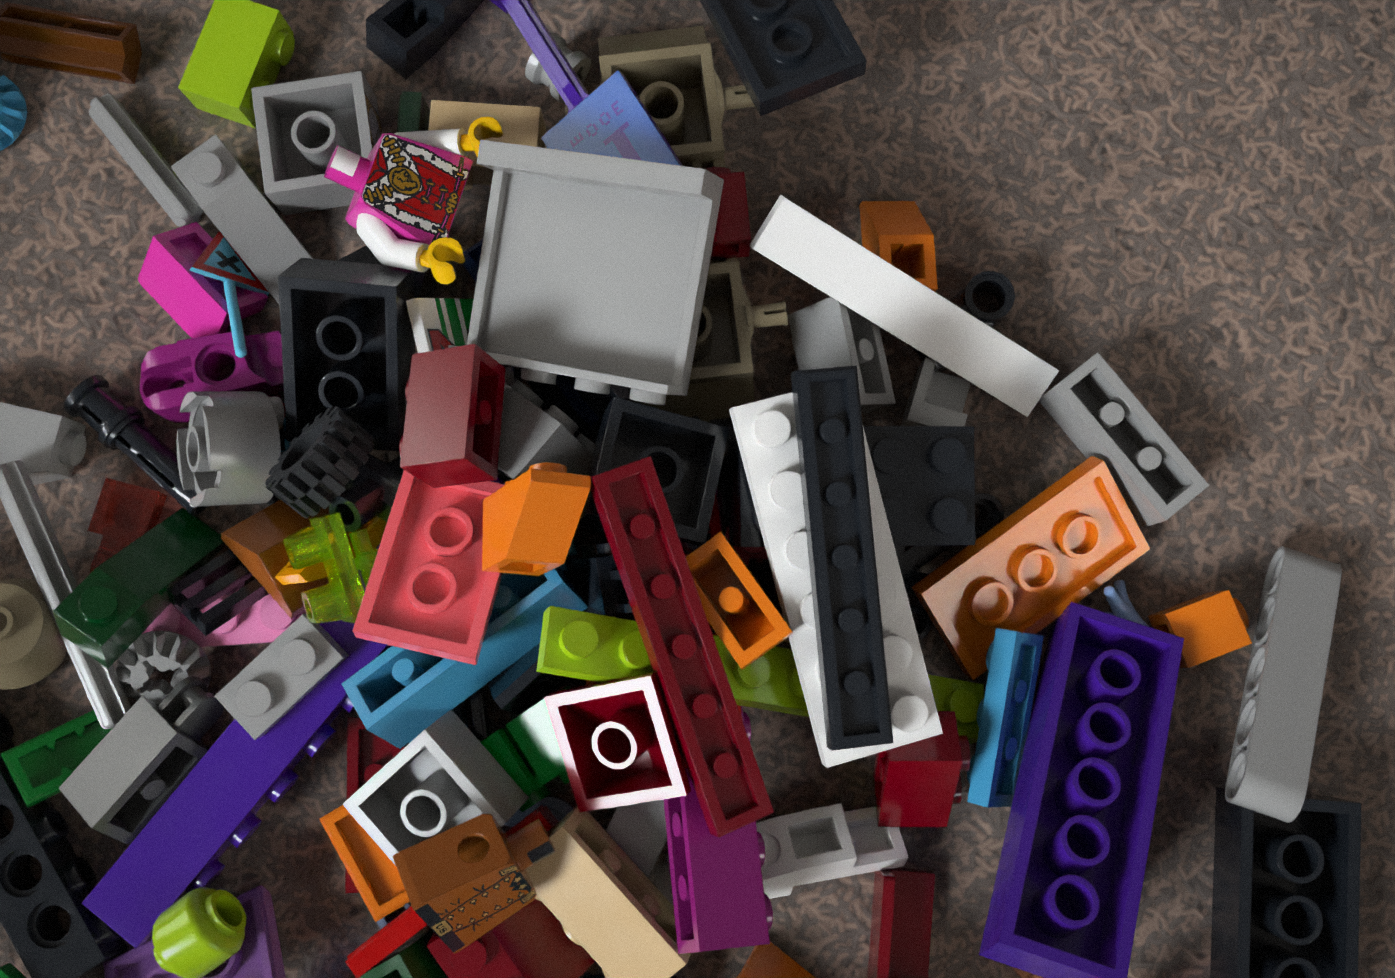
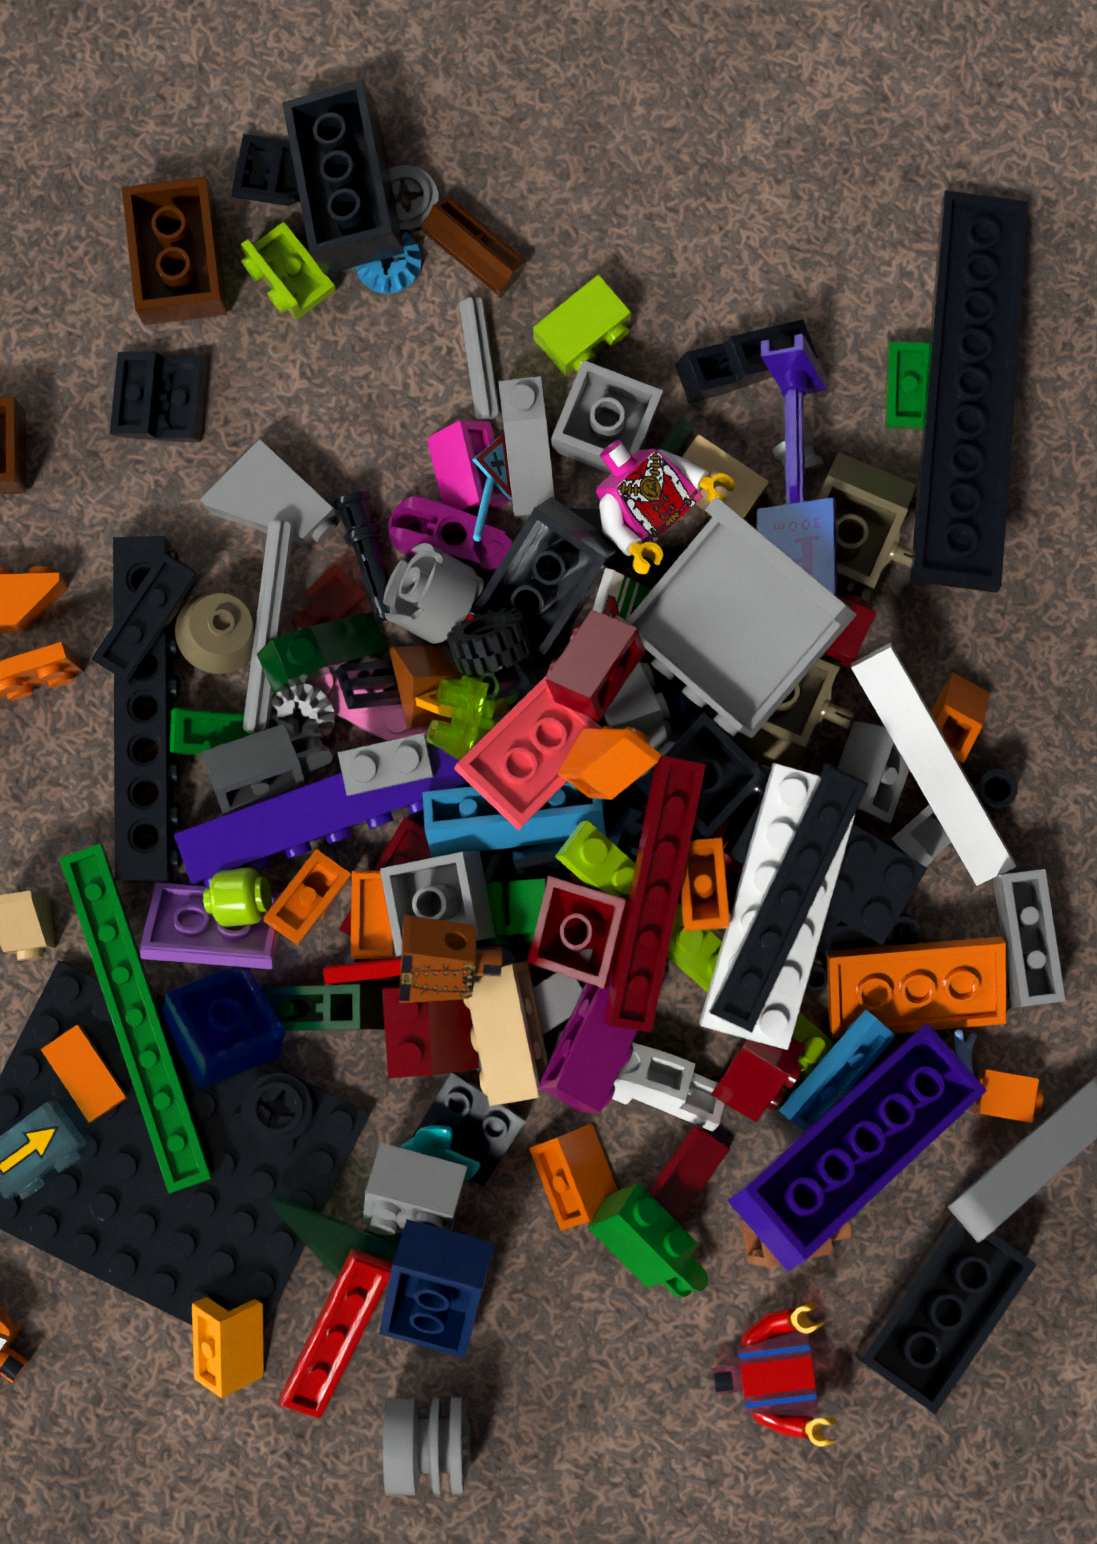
camera: 35 degrees right, 0 degrees up
(284, 881) = (307, 897): none -> orange slope

